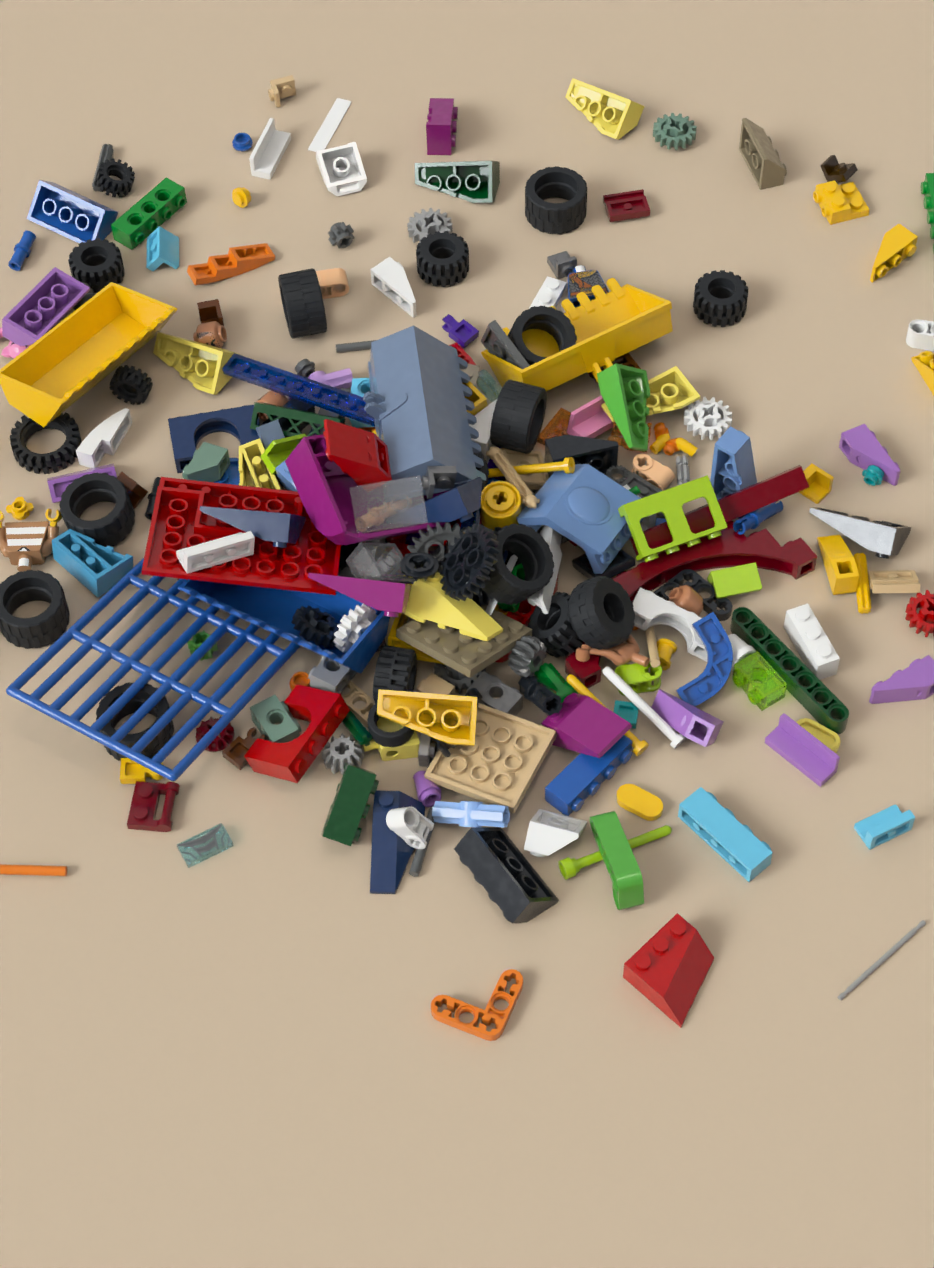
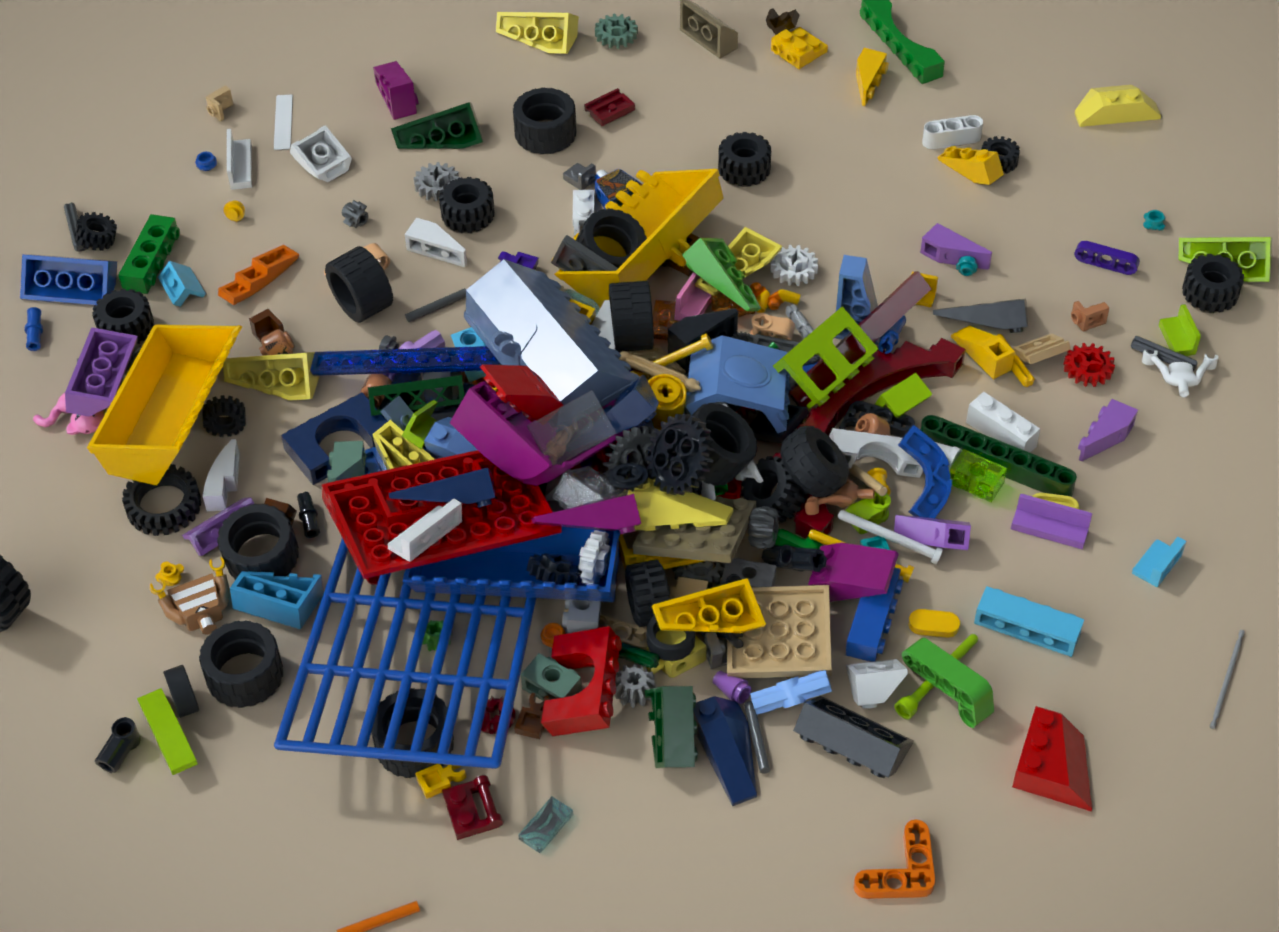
camera: 25 degrees left, 5 degrees down
(410, 826) = (743, 724): white piece -> none
(438, 478) = (607, 388): flat silver bracket -> none

